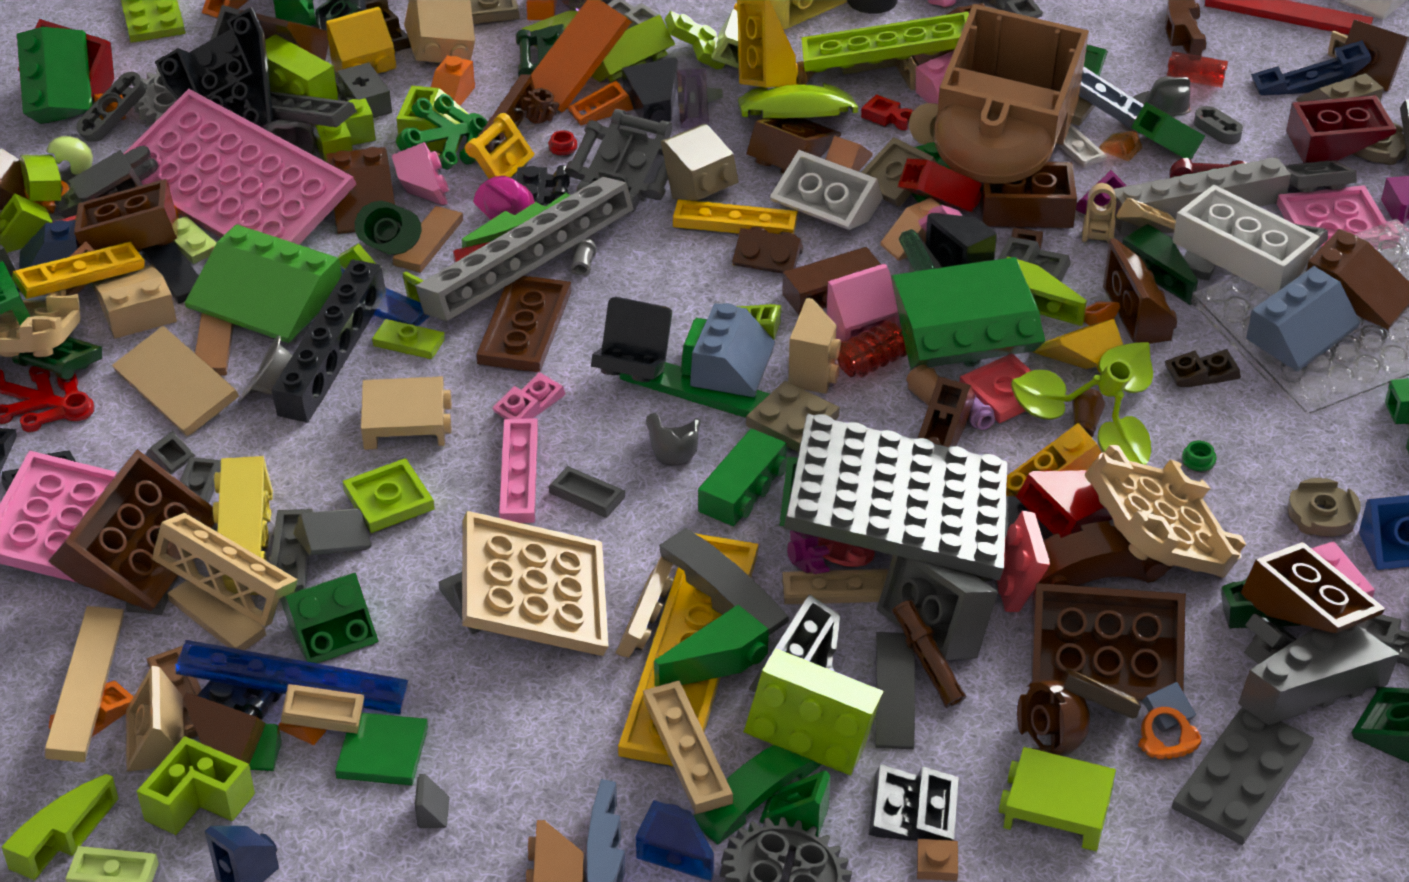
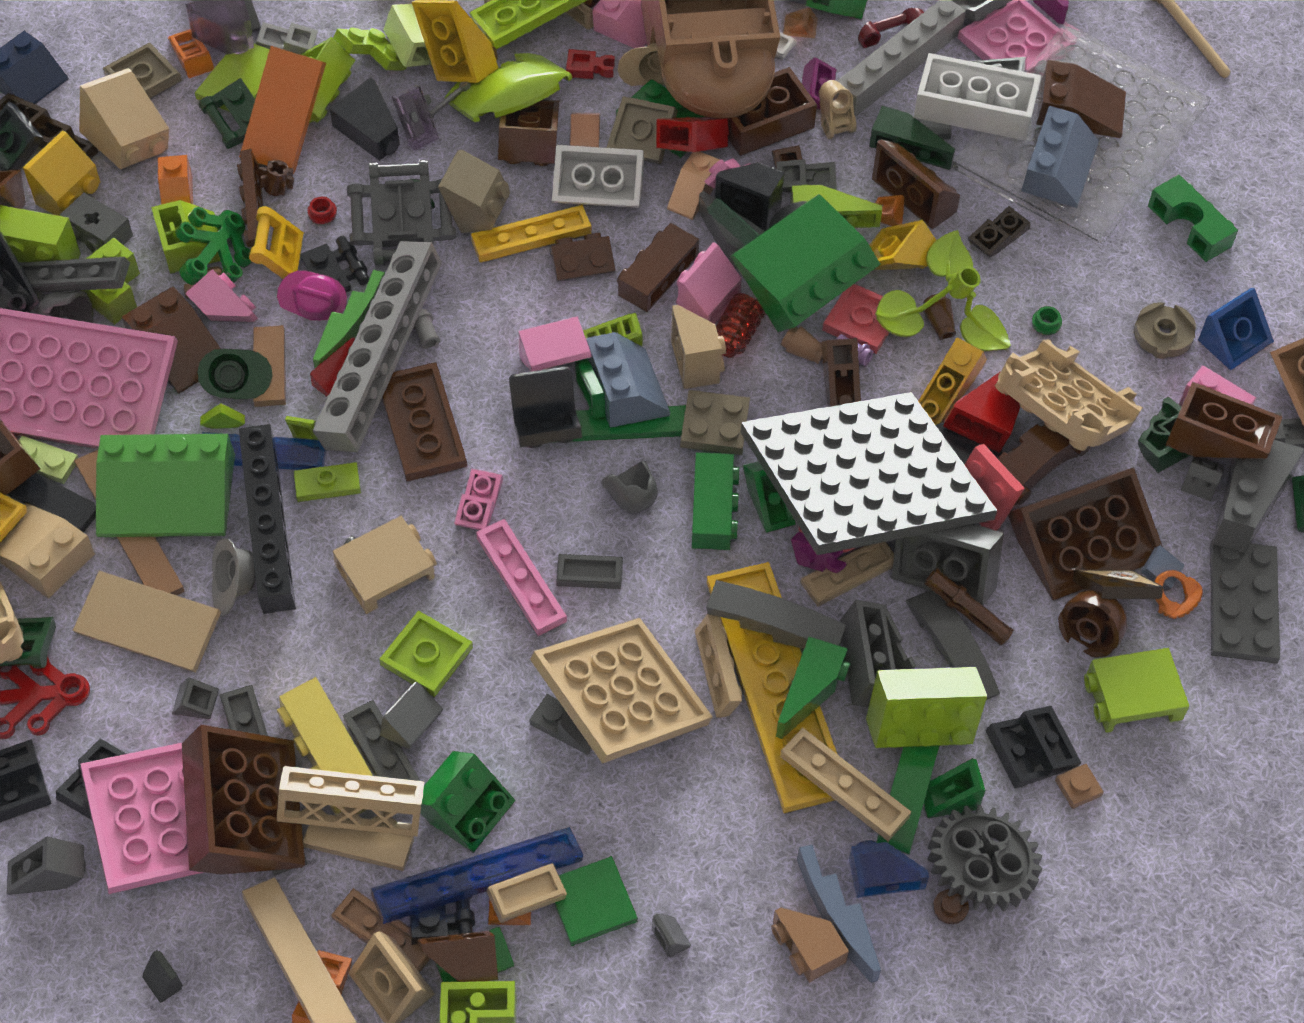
camera: 30 degrees left, 15 degrees up
(605, 101) = (330, 134): orange slope -> none
(683, 295) = (553, 344): none -> bright pink slope
(713, 107) = (464, 86): none -> flat silver hinge
(1142, 214) = (878, 96): tan slope -> none

